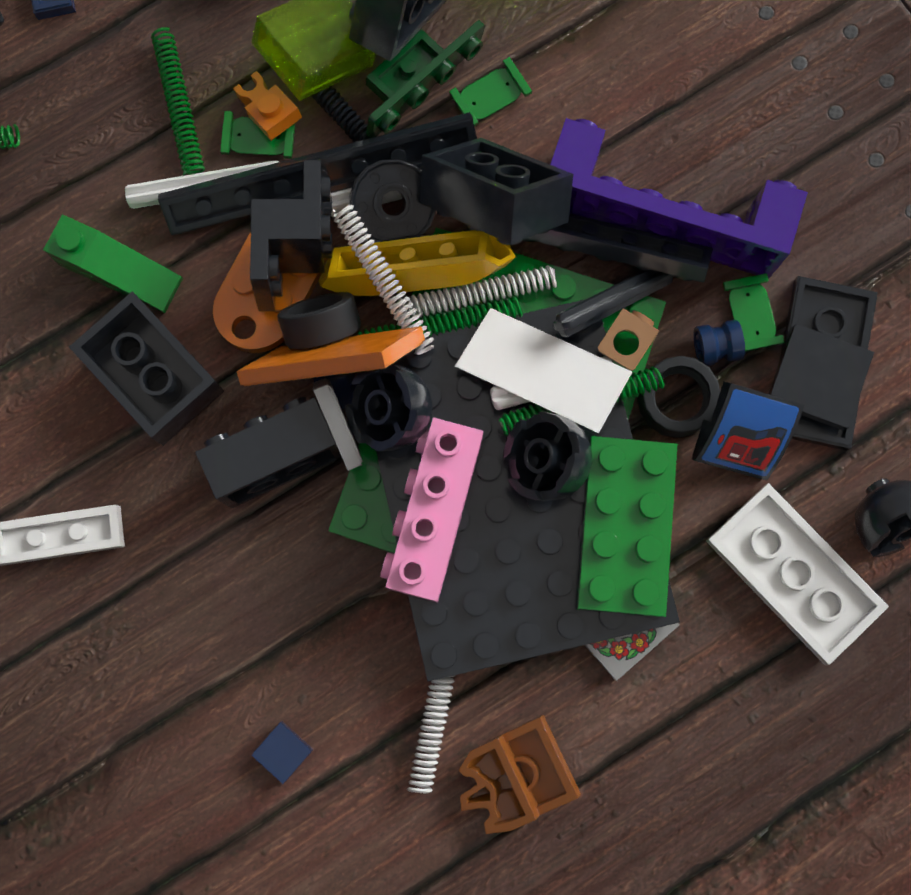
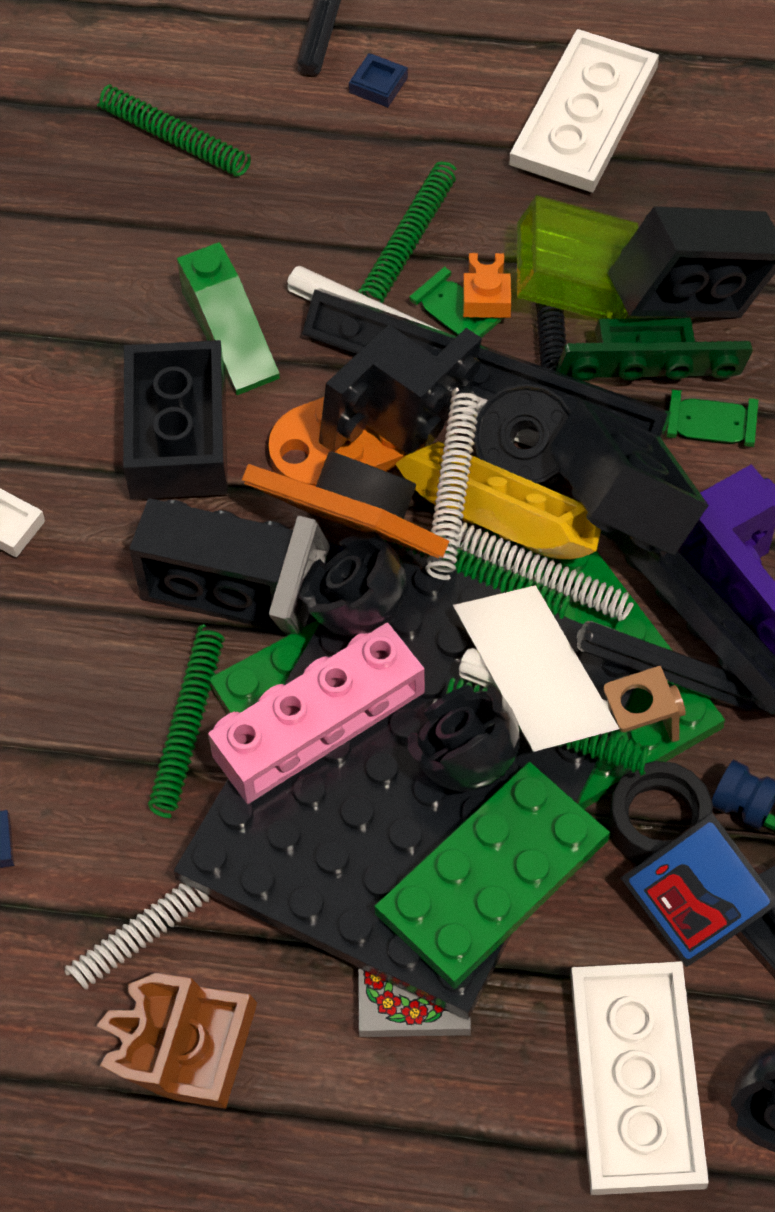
camera: 40 degrees right, 20 degrees down
(368, 633) = (183, 717): none -> green piece

